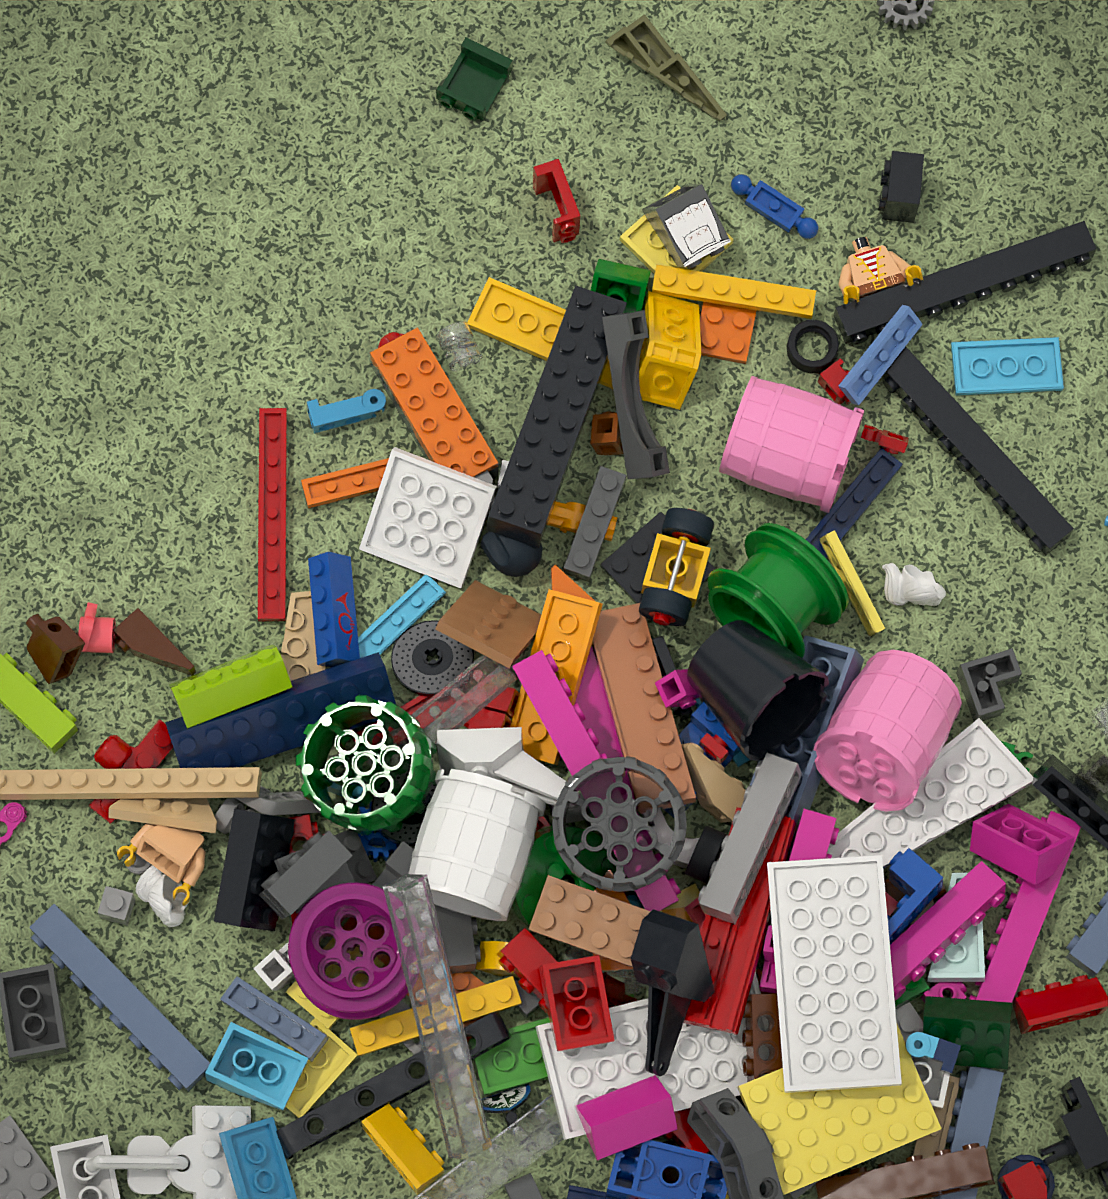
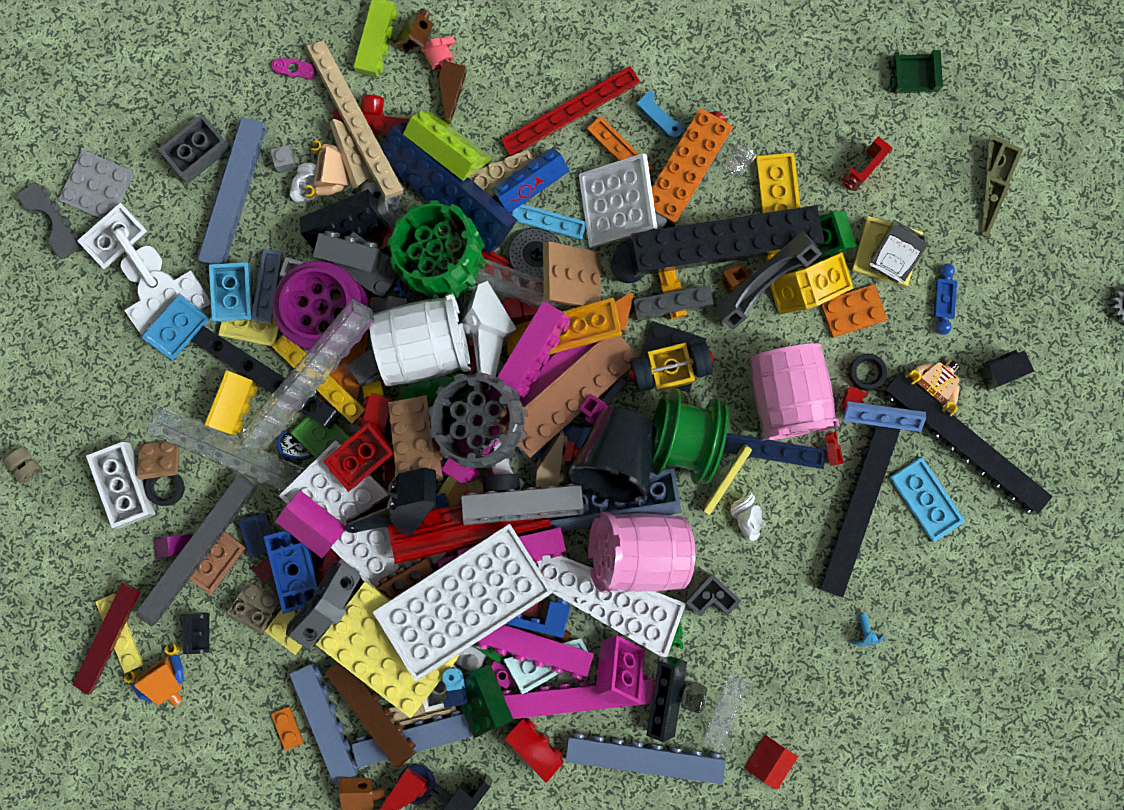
camera: 70 degrees right, 10 degrees up
(734, 291) = (873, 304): yellow plate -> none

